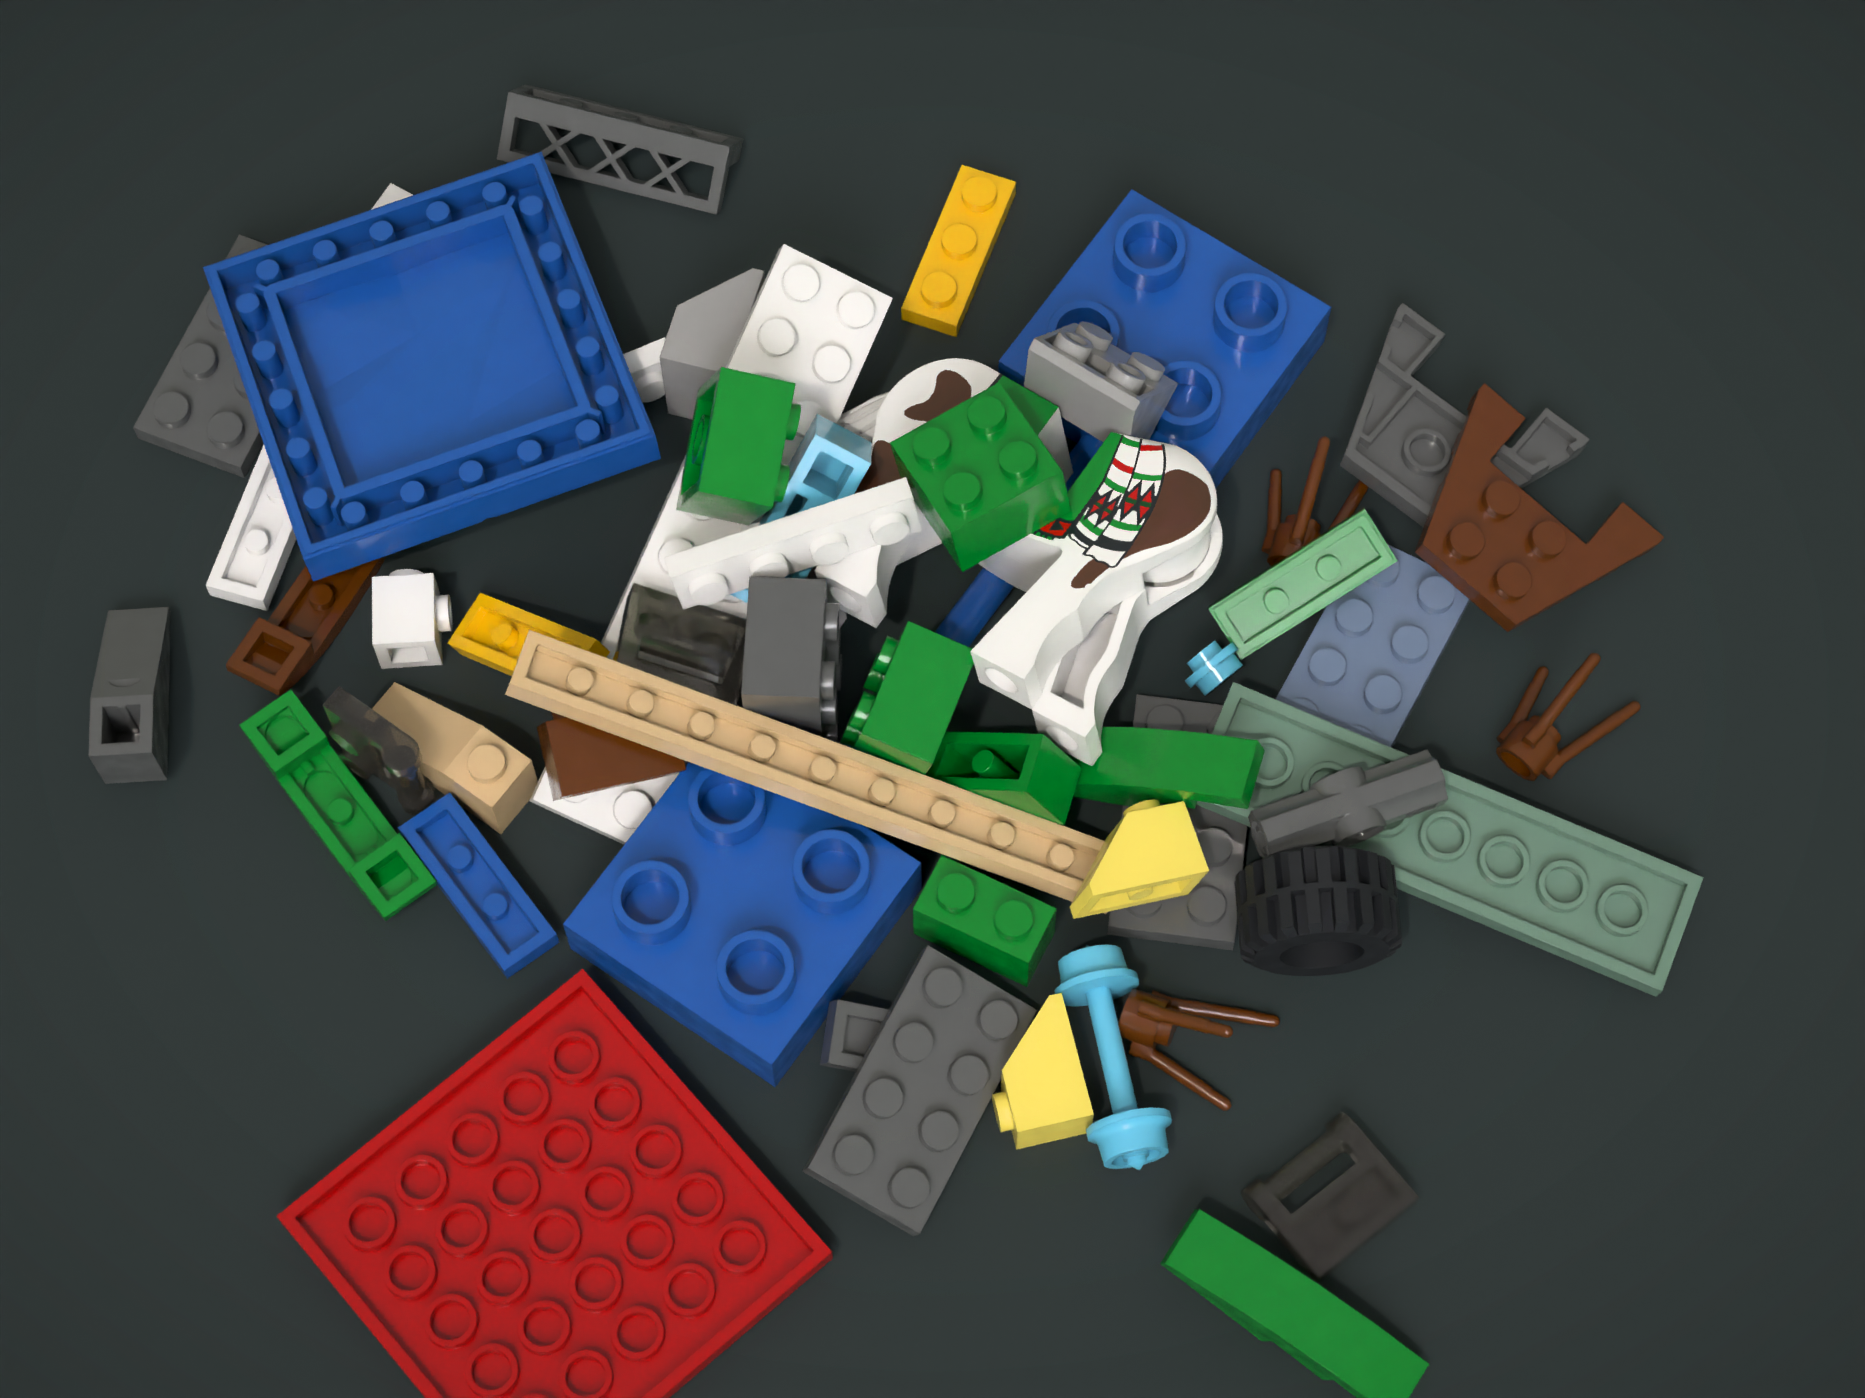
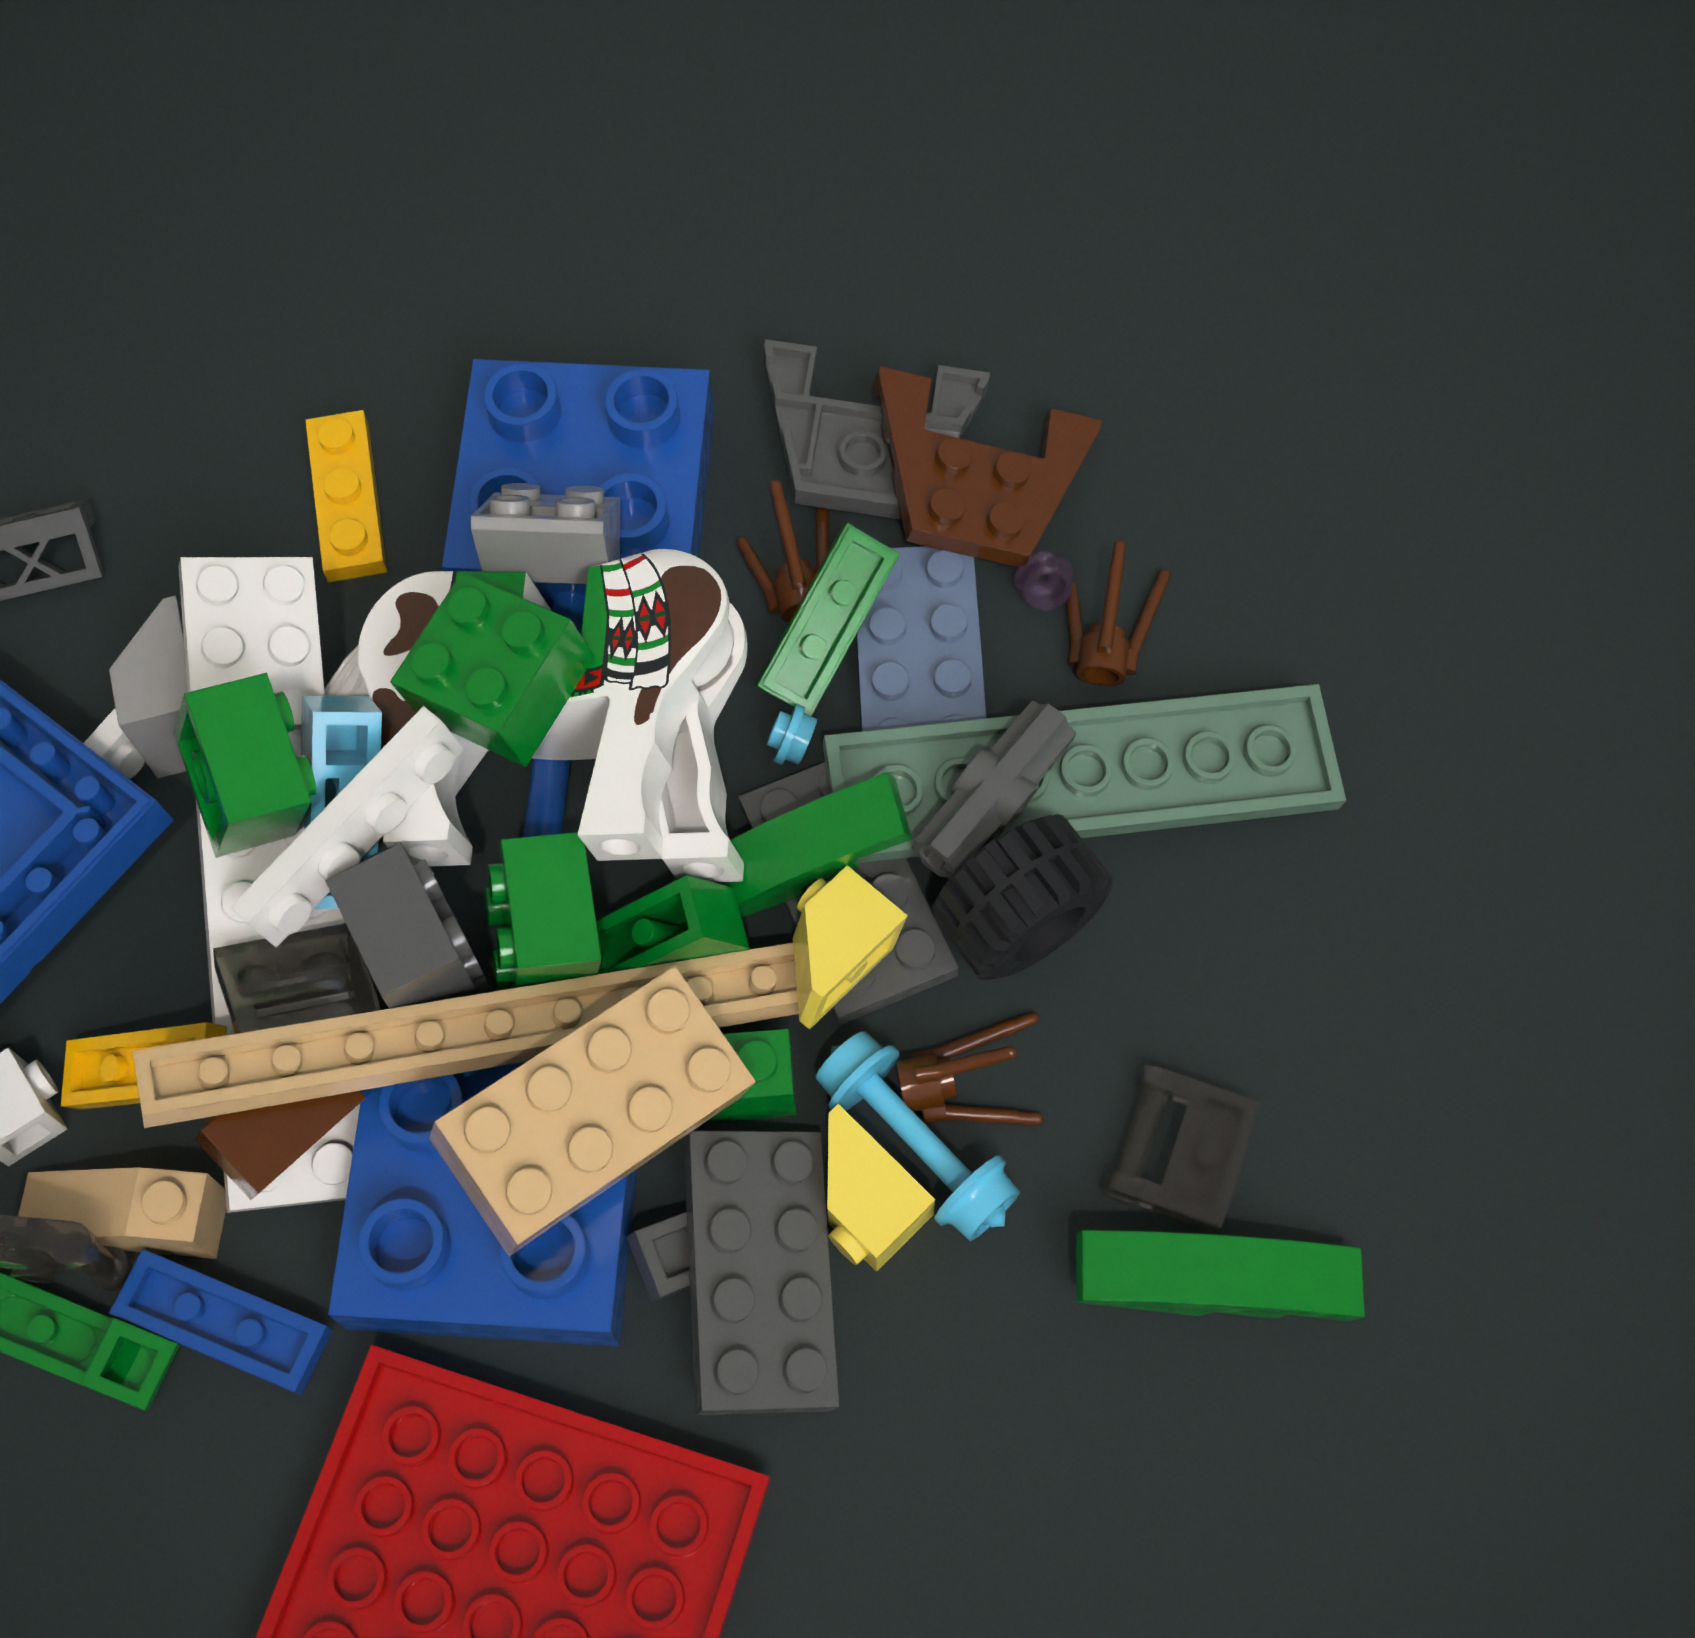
camera: 30 degrees left, 0 degrees up
(855, 878) = (590, 1109): none -> tan brick
(1514, 665) = (1046, 593): none -> clear purple plate

